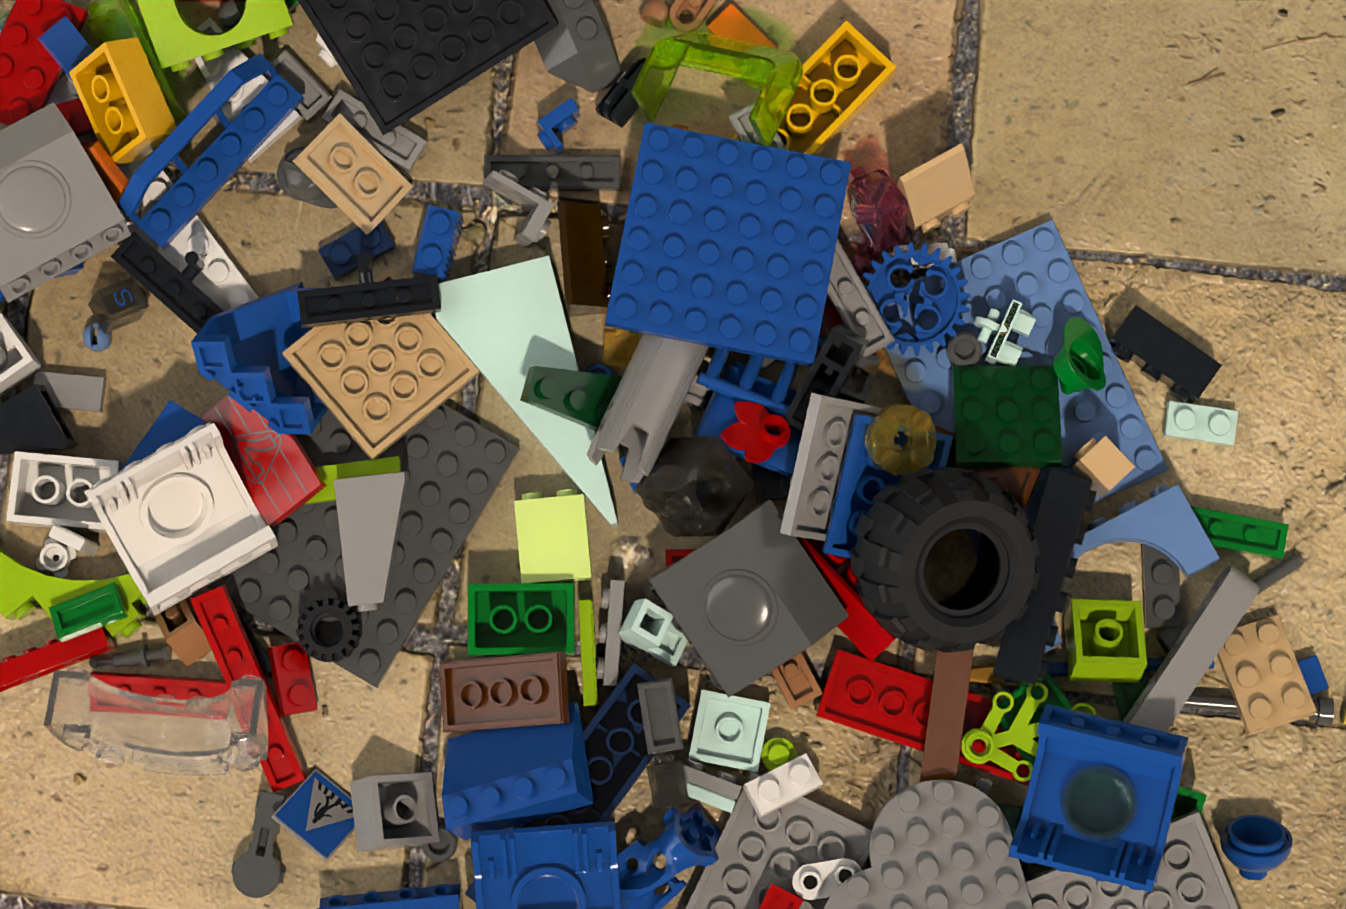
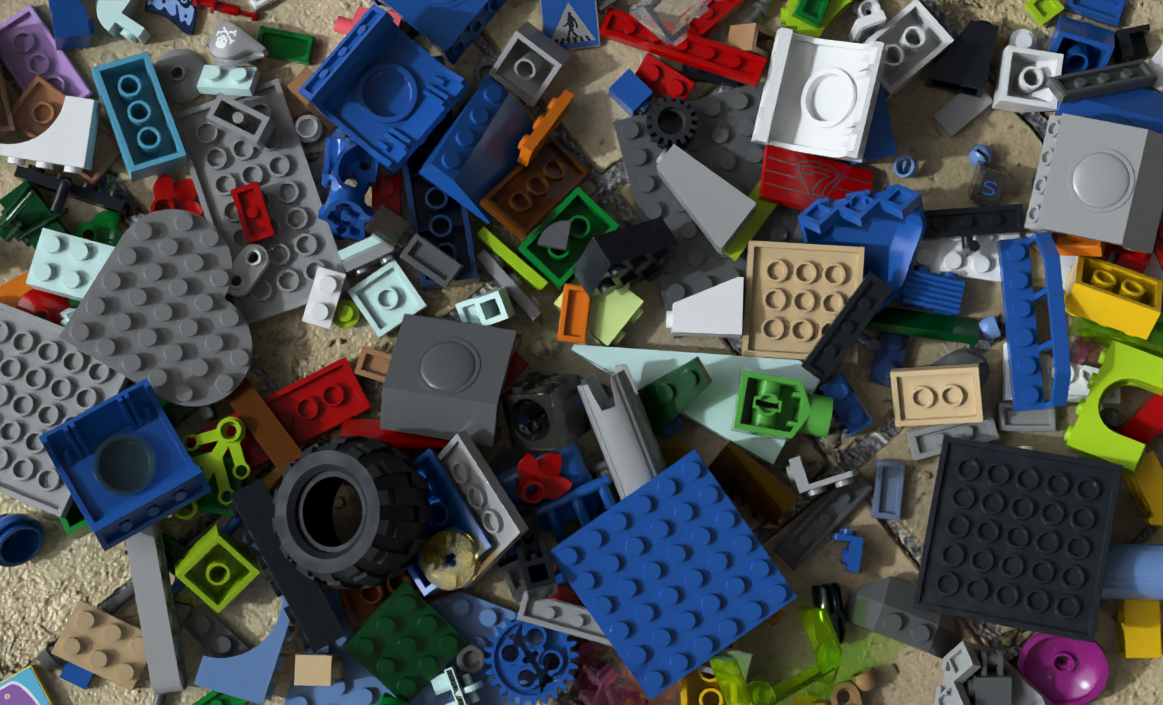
camera: 130 degrees right, 0 degrees up
(175, 394) = (903, 169): none -> medium blue hinge
(193, 92) = (1080, 350): none -> clear pink tile
(249, 187) = (988, 328): none -> medium blue hinge
(261, 261) = (933, 292): none -> blue brick
(296, 239) = (925, 325): none -> dark green tile
(335, 694) = (631, 94): none -> blue brick
(442, 739) = (544, 127): none -> orange plate
(468, 433) = (709, 312): none -> white slope
(474, 142) = (888, 490): none -> sand blue tile
(492, 548) = (625, 257): none -> black brick
(497, 291) = (779, 408): none -> bright green brick
(531, 628) = (555, 235): none -> dark grey tile
(583, 548) = (574, 315): none -> orange tile
(641, 821) = (387, 193): none -> red plate

